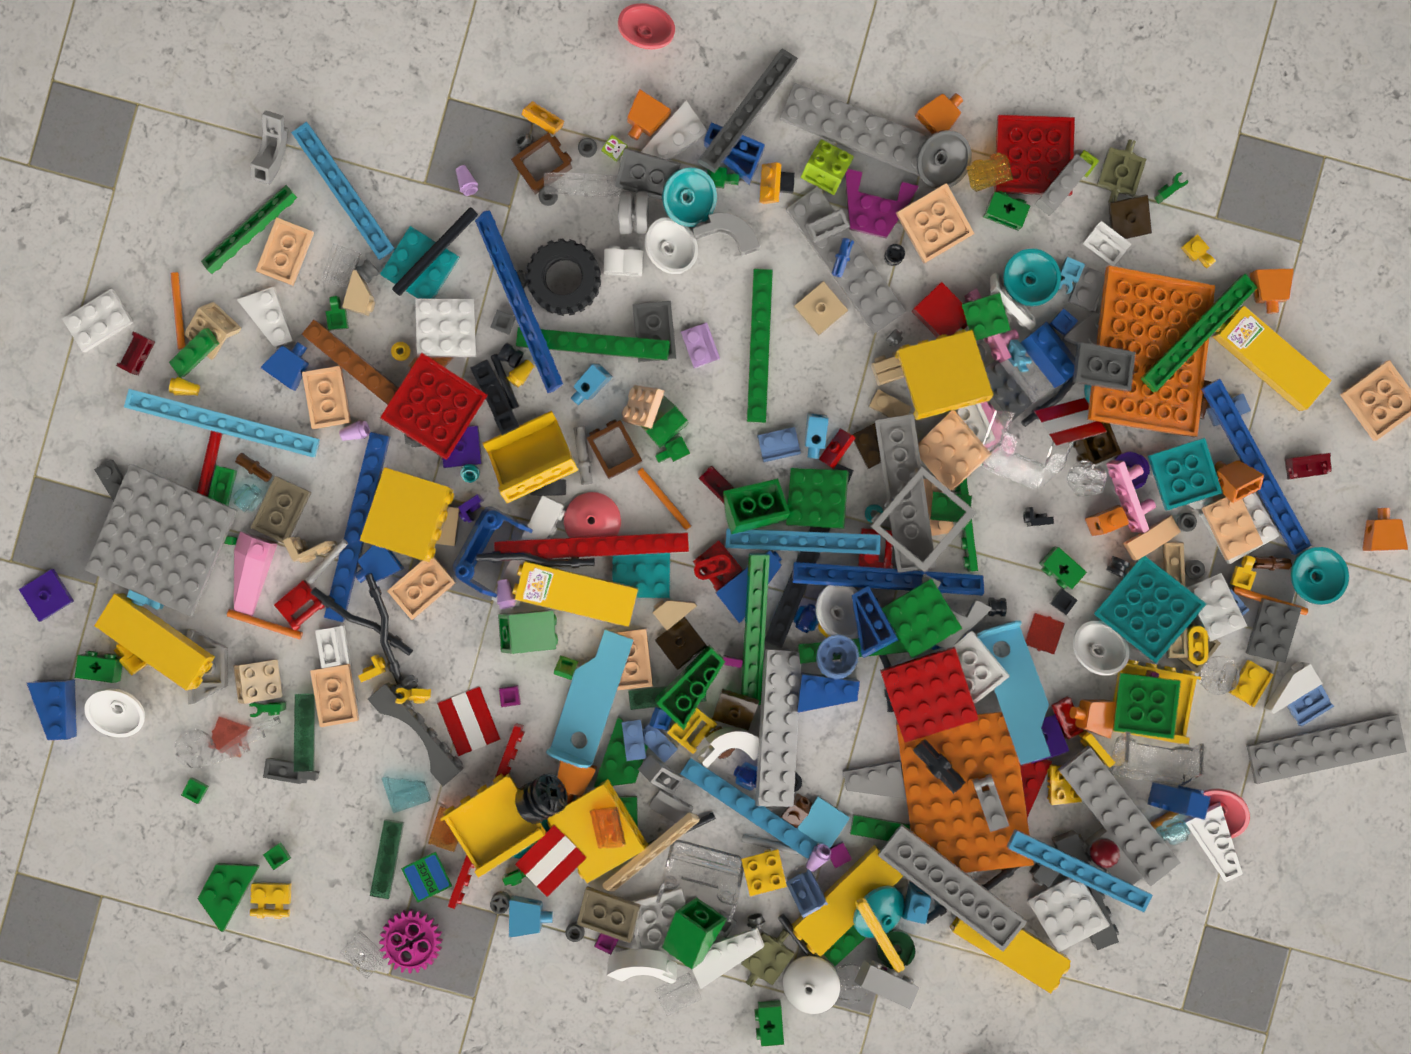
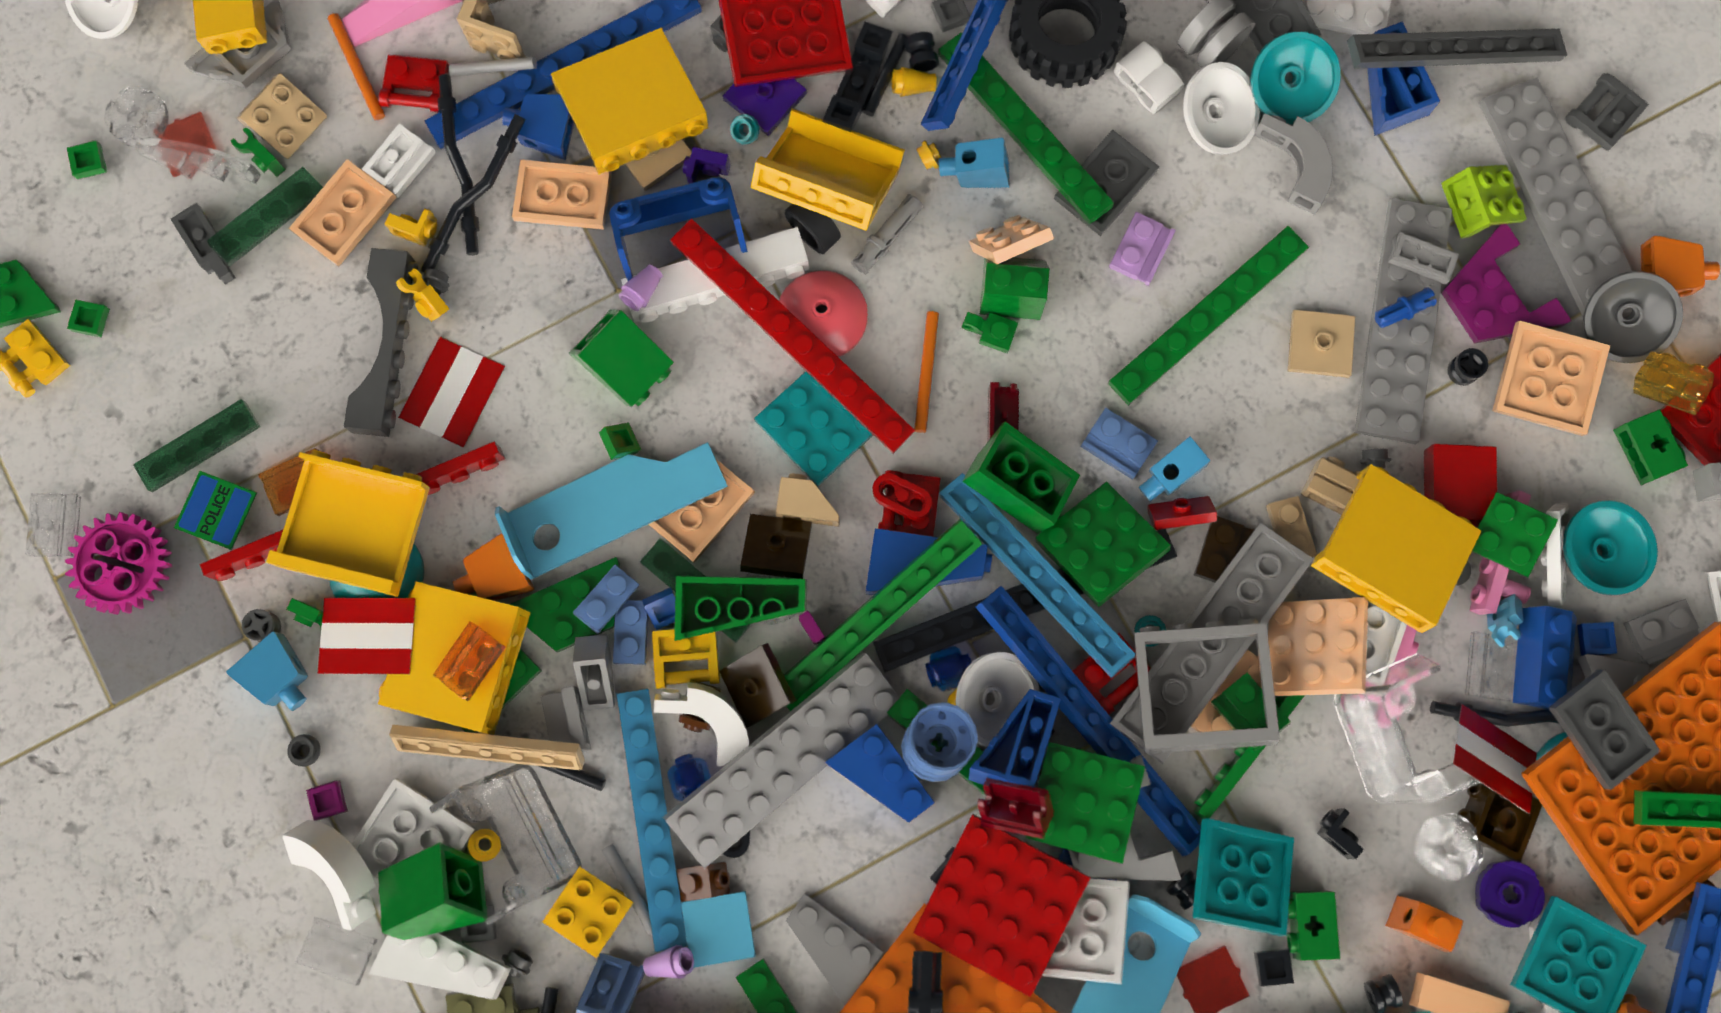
camera: 45 degrees right, 10 degrees down
(405, 793) = (297, 396): clear light blue wing -> none
(497, 557) = (678, 234): black bar -> none
(509, 696) = (525, 410): magenta tile -> none
(541, 798) = (432, 550): black wheel -> none
(563, 400) = (929, 155): none -> yellow plate
(575, 593) = (719, 365): yellow brick -> none
(597, 433) = (921, 289): reddish brown window -> none
(608, 914) = (362, 769): dark tan plate -> none
(687, 886) = (476, 852): none -> yellow plate
(721, 177) = (1351, 97): green plate -> none
(770, 183) = (1401, 153): light orange plate -> none
(787, 182) = (1417, 170): black plate -> none
(839, 855) = (696, 989): magenta tile -> none
(847, 67) = (1614, 118): none -> dark grey plate
(896, 652) = (1015, 808): none -> dark red hinge
(1006, 393) = (1450, 647): dark grey plate -> none
(1015, 579) = (1243, 877): none -> teal plate
(1070, 273) = (1660, 592): medium azure plate -> none
(1125, 490) = (1480, 919): bright pink plate -> none

